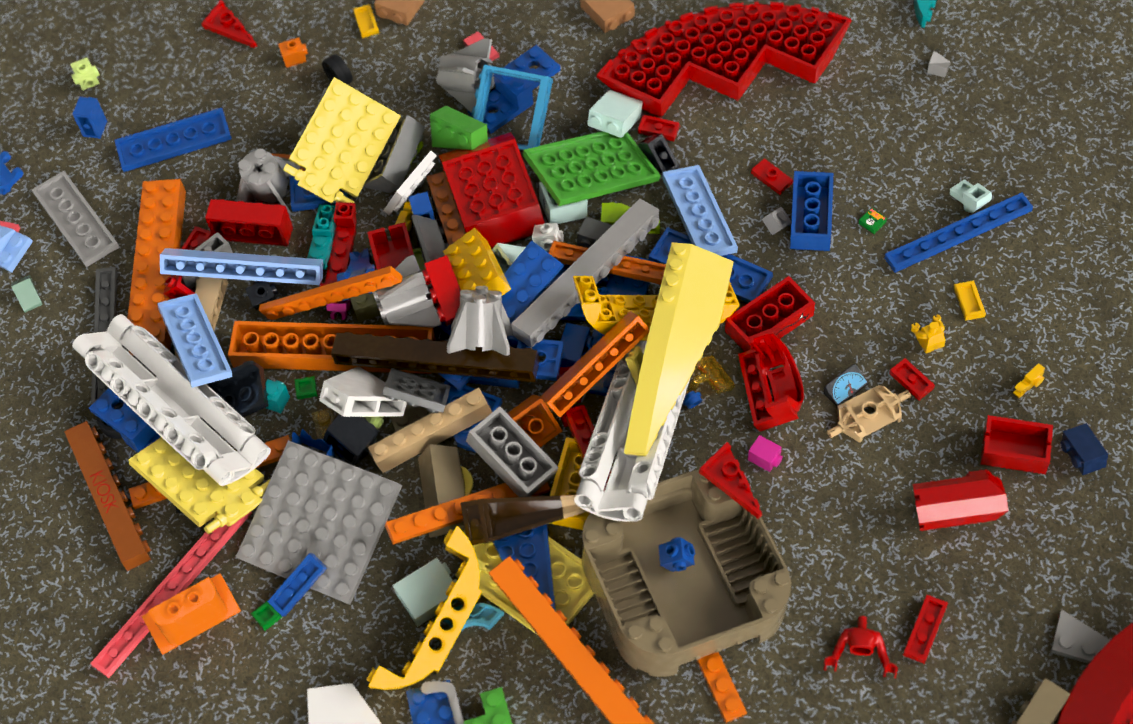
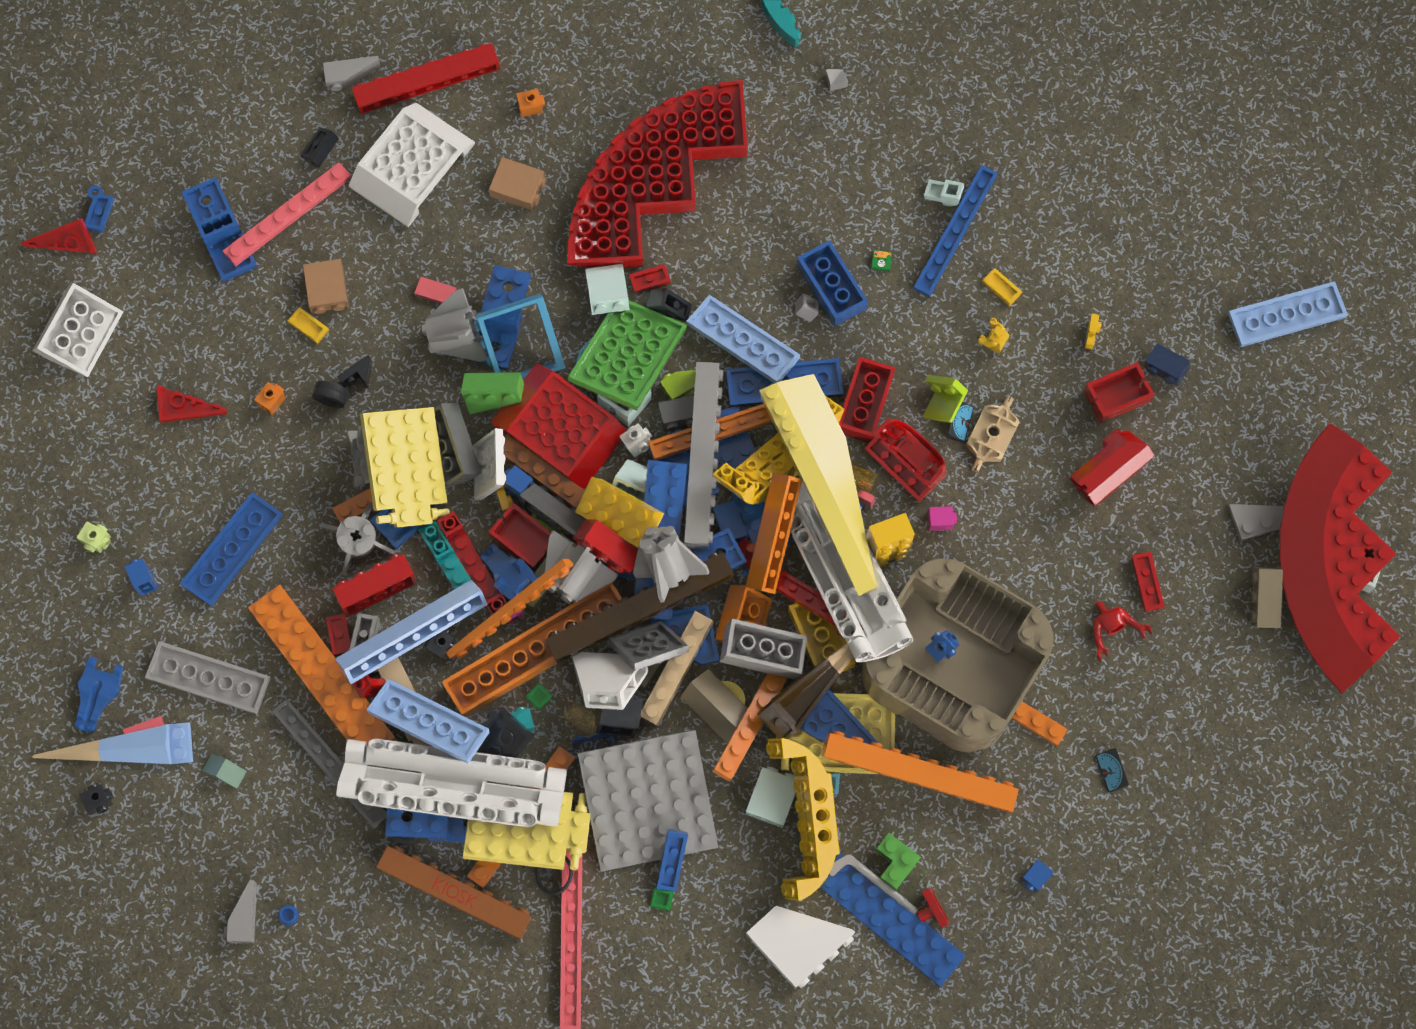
camera: 45 degrees left, 15 degrees up
(190, 613) = (613, 941): orange windscreen -> none
(201, 543) = (557, 891): none -> black tyre
(375, 69) = (361, 370): none -> black slope
(634, 362) = (809, 514): light yellow tile -> none
(694, 431) = (890, 539): none -> yellow brick
(708, 397) = (865, 498): none -> coral tile
(726, 475) = (942, 562): red wing -> none
(772, 176) = (773, 268): red plate -> none
(851, 355) = (946, 399): none -> lime bracket
(912, 379) = (1005, 384): red plate -> none

